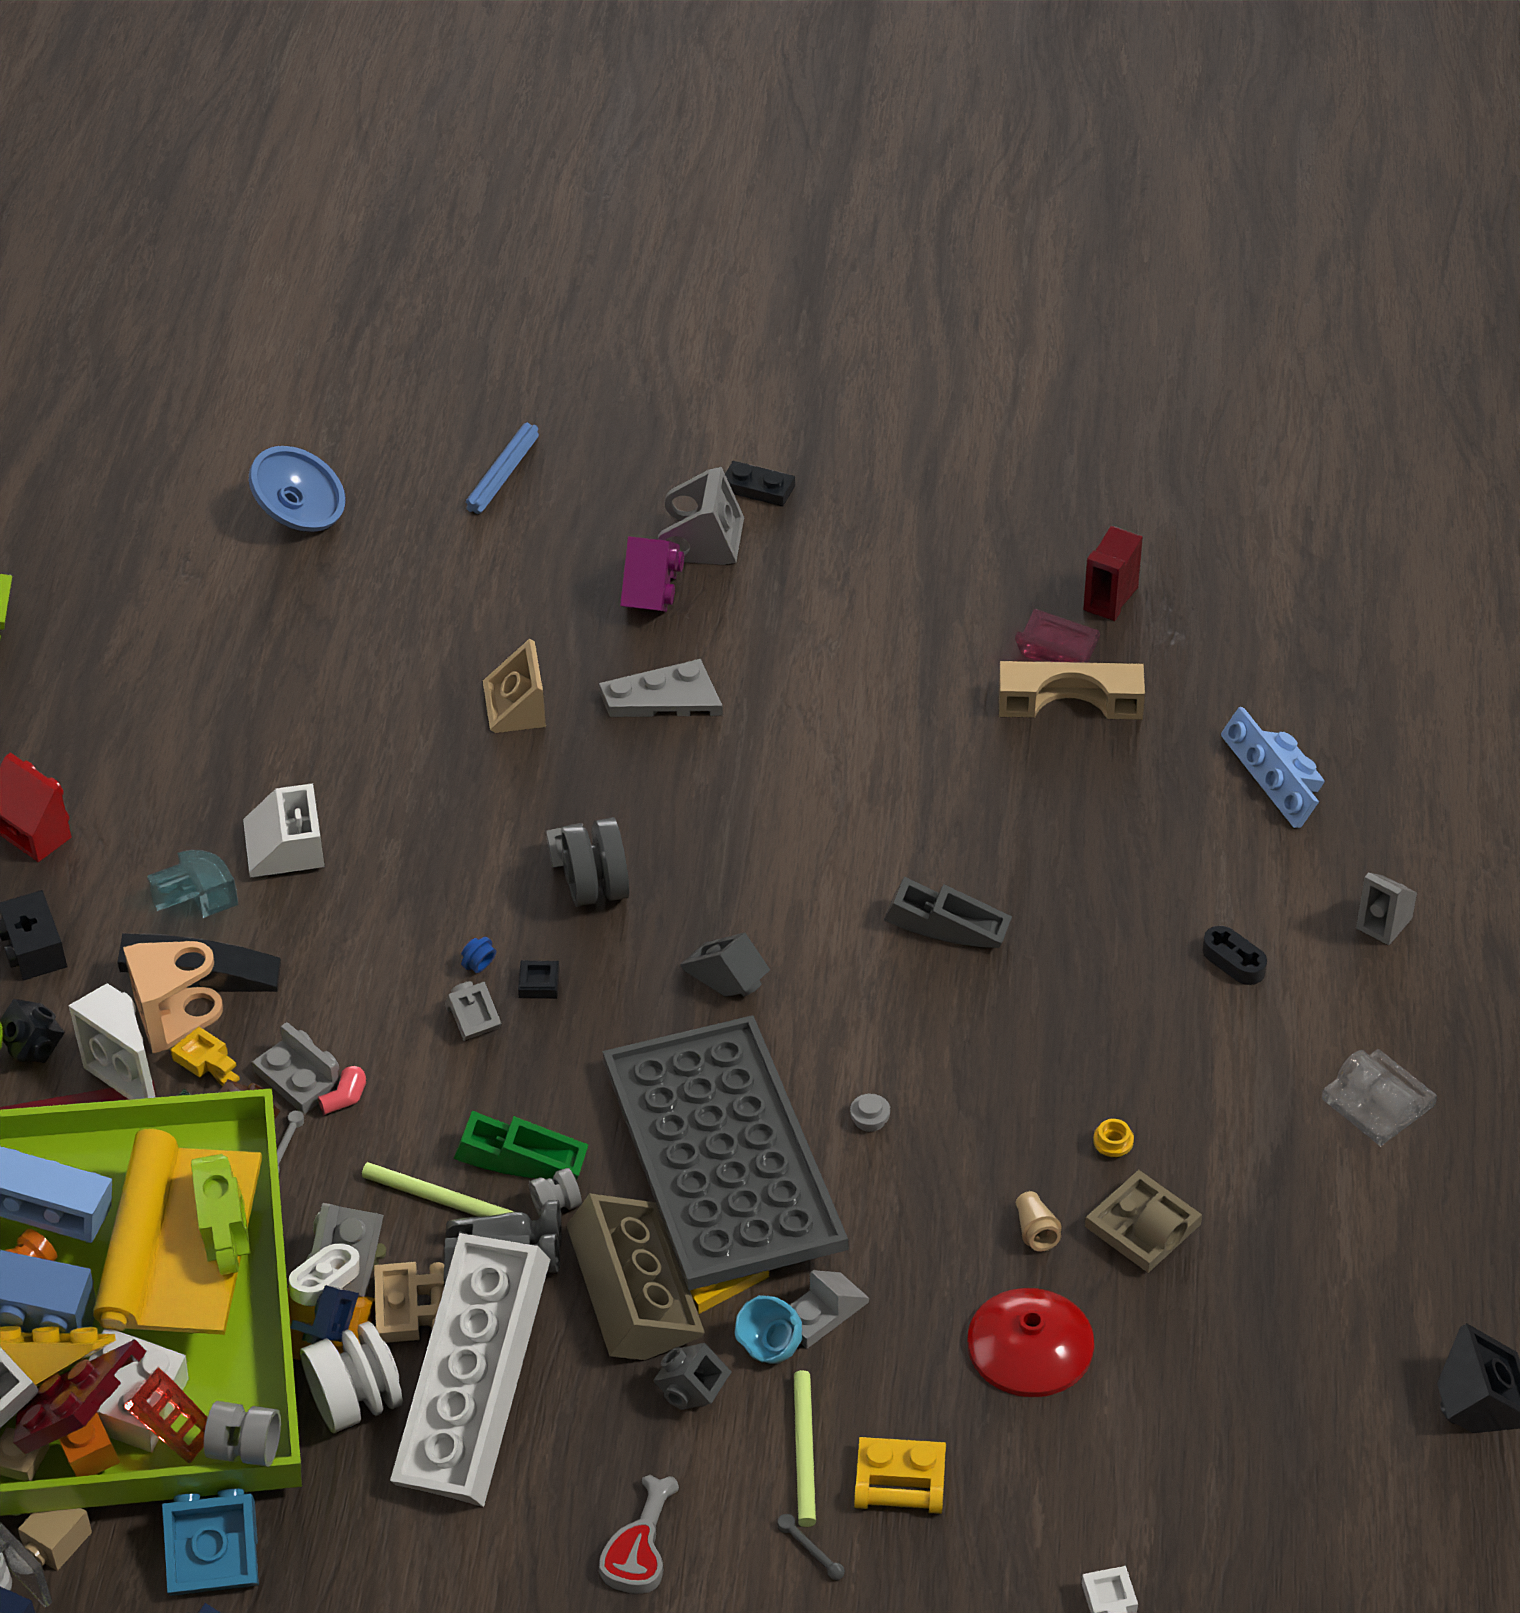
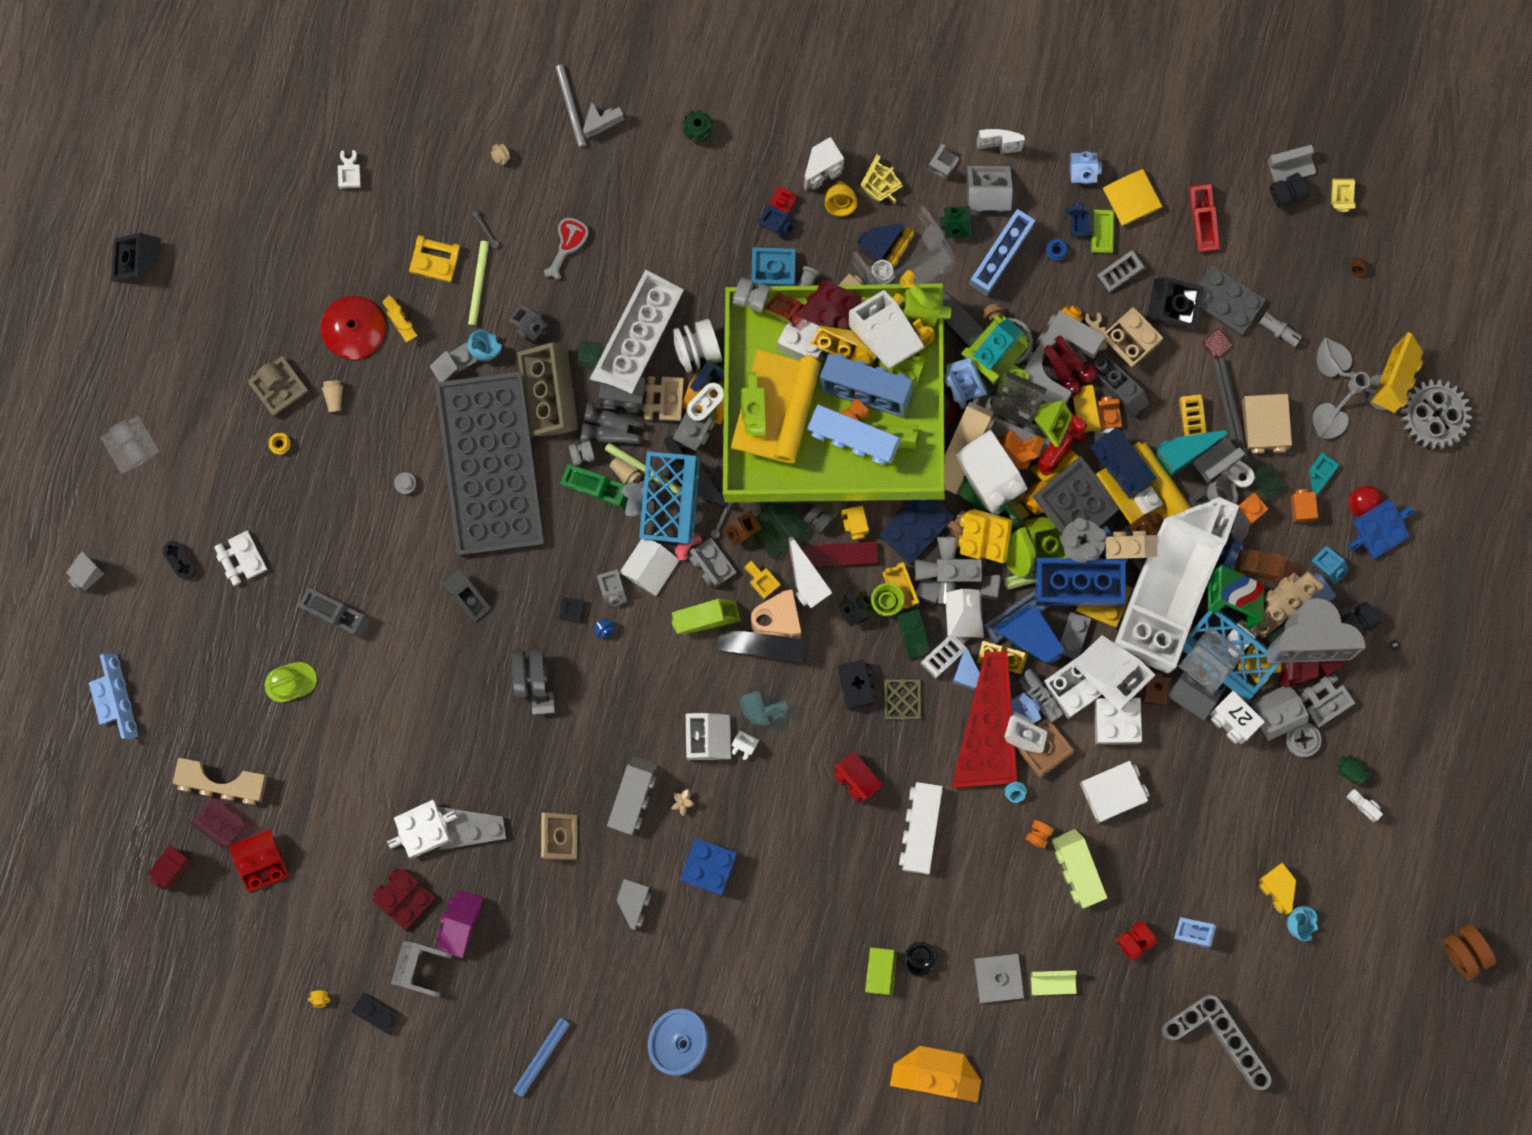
camera: 175 degrees left, 35 degrees up
(139, 1540) = (808, 277): none -> light grey bush
(220, 837) = (744, 743): none -> white tile
(268, 684) = (708, 867): none -> blue brick
(298, 985) = (705, 616): none -> lime slope
(319, 760) = (682, 801): none -> tan plant
(340, 1181) = (706, 488): none -> black slope
(345, 1132) = (688, 497): none -> dark azure fence
(386, 635) = (631, 901): none -> light grey slope
(395, 751) = (632, 795): none -> light grey wedge
(413, 1052) = (649, 566): none -> white slope
(437, 1137) = (634, 493): none -> light grey plate
(468, 1177) = (625, 471): none -> tan cone
(562, 1346) = (589, 354): none -> clear green brick
(733, 672) = (422, 829): none -> white plate
(747, 602) = (403, 898): none -> dark red plate
(845, 482) = (319, 998): none -> yellow plate
(943, 1349) = (398, 318): none -> yellow piece
(981, 608) = (258, 860): none -> red slope
(997, 827) = (290, 682): none -> lime piece
(1120, 977) = (246, 554): none -> white plate

